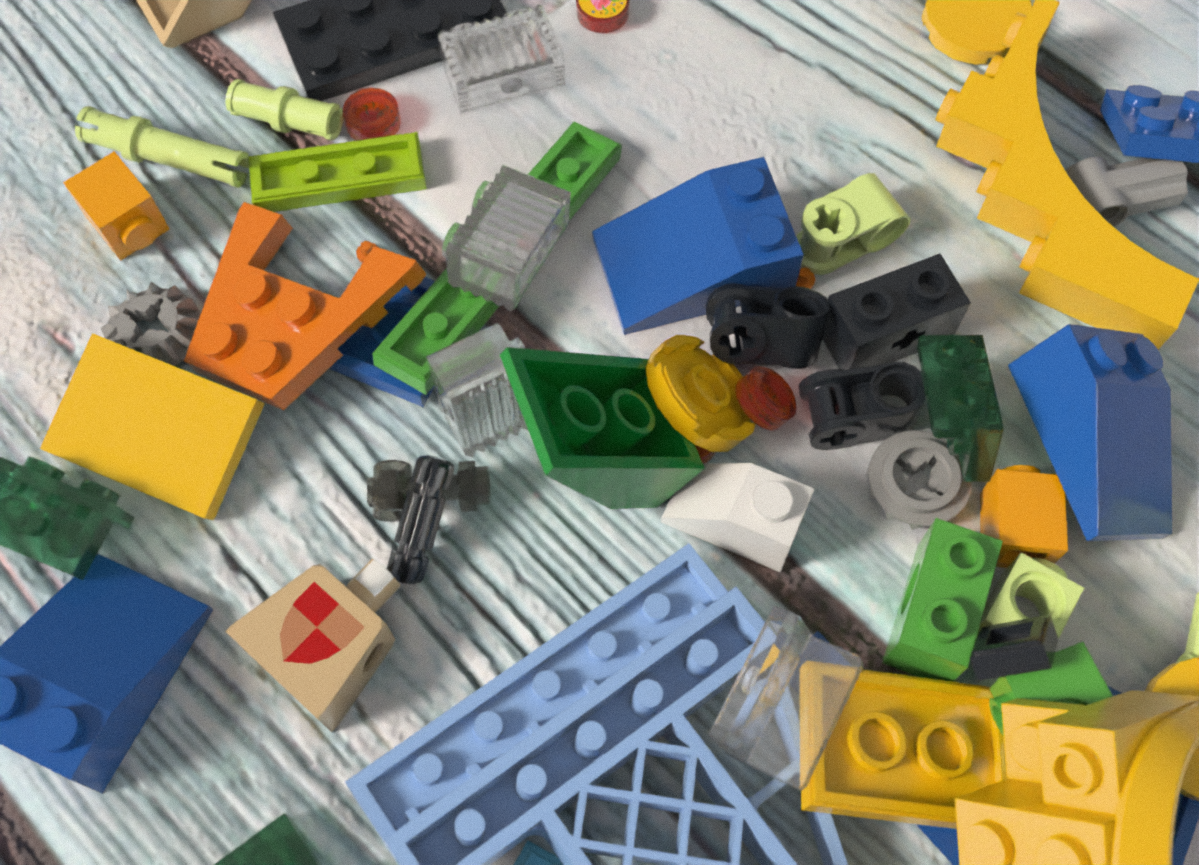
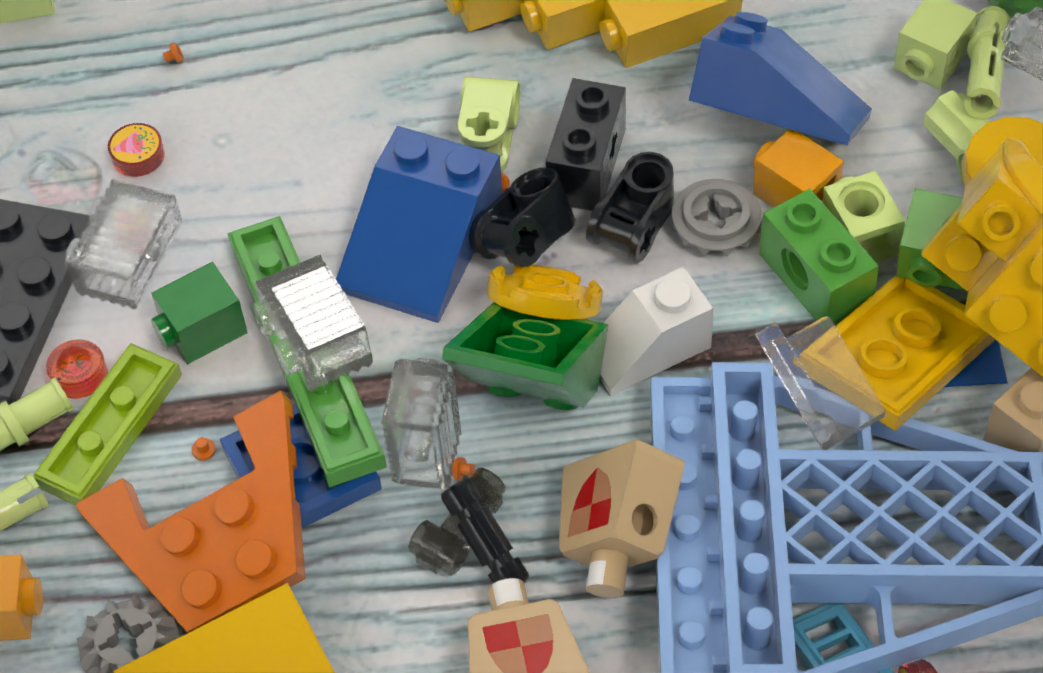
camera: 50 degrees left, 10 degrees down
(473, 150) = (198, 313): none -> green brick
(488, 454) = (461, 467): none -> orange piece
(508, 617) = (617, 511): none -> tan torso
(766, 398) = (578, 261): clear red tile -> none
(962, 400) = (693, 142): clear green bracket -> none
(1014, 648) = (888, 228): black tile -> none

